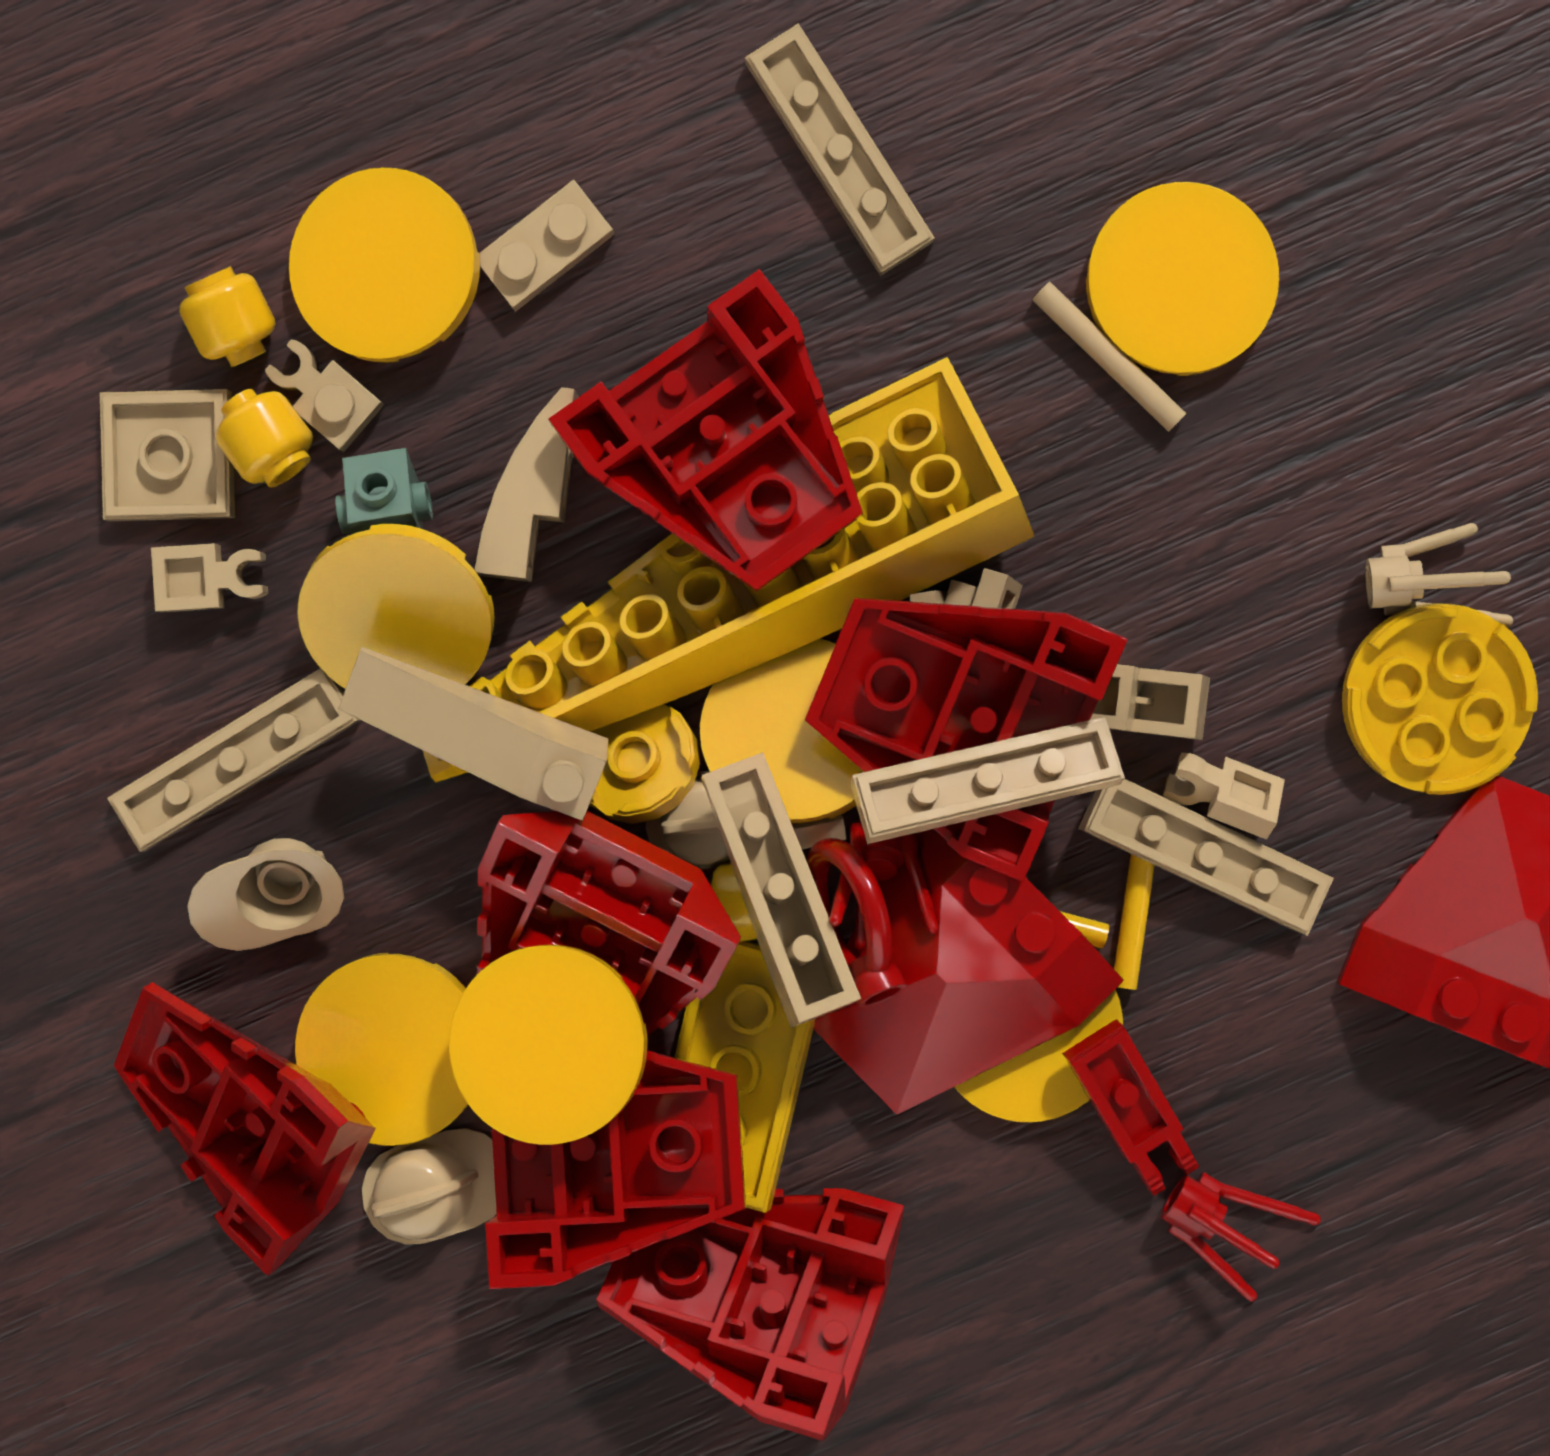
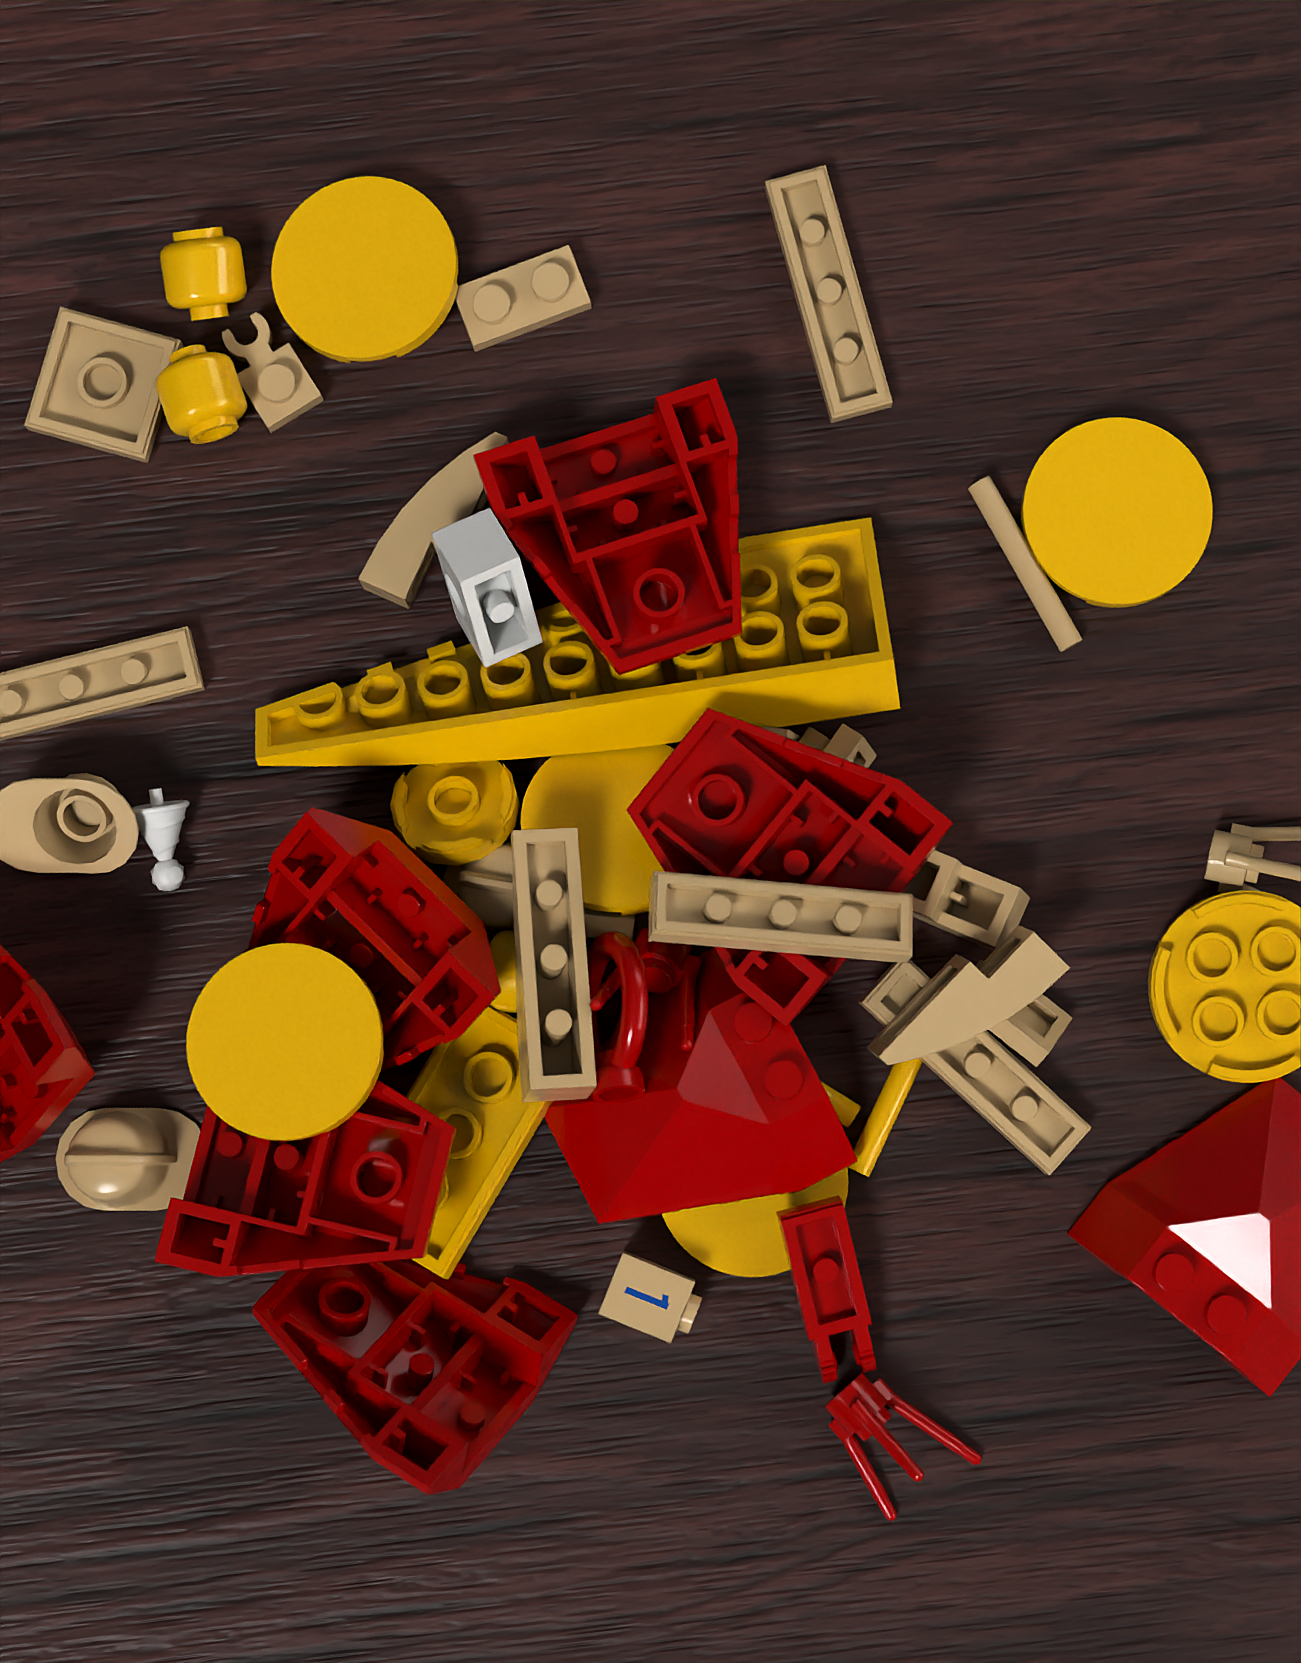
camera: 20 degrees right, 5 degrees down
(196, 577) = (94, 504): tan plate -> none
(360, 866) = (161, 827): none -> white piece
(382, 491) = (293, 489): sand green brick -> none
(384, 1043) = (129, 1002): yellow tile -> none
(397, 596) = (271, 597): yellow tile -> none
(479, 732) = (313, 725): tan slope -> none
(601, 542) = (487, 587): none -> white brick
(966, 1168) = (650, 1298): none -> tan brick
(1188, 800) = (969, 999): none -> tan slope

